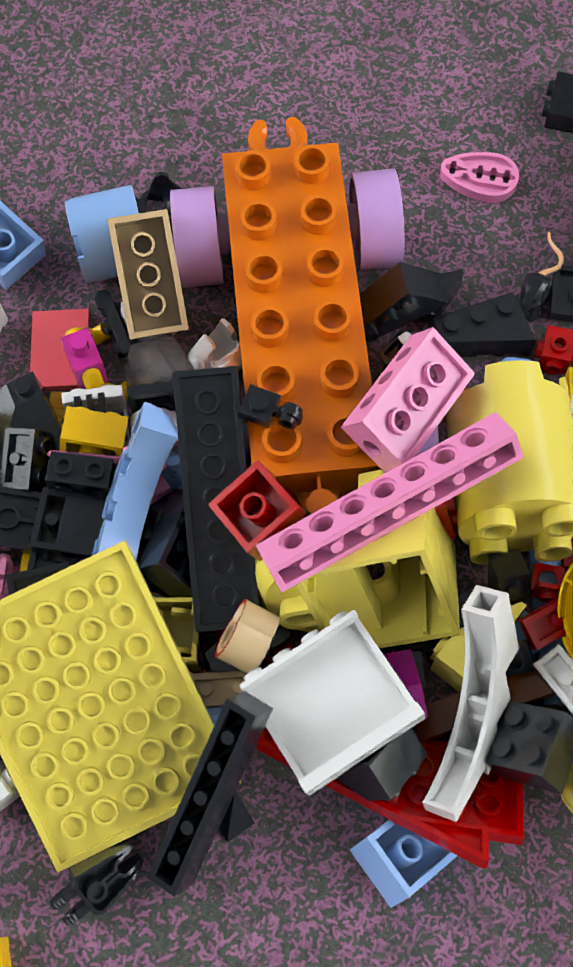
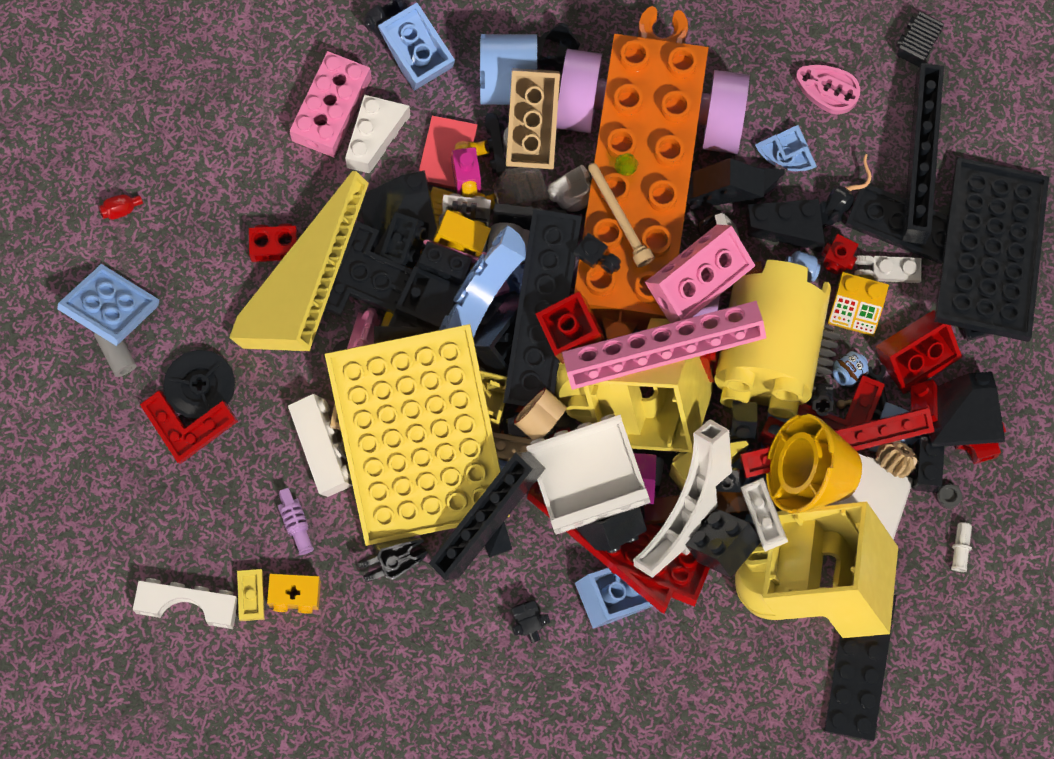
camera: 10 degrees right, 5 degrees up
(276, 293) = (626, 164): none -> clear neon green plate
(301, 920) = (528, 620): none -> black piece
(327, 395) = (641, 254): none -> tan piece
(457, 251) = (788, 150): none -> light blue brick

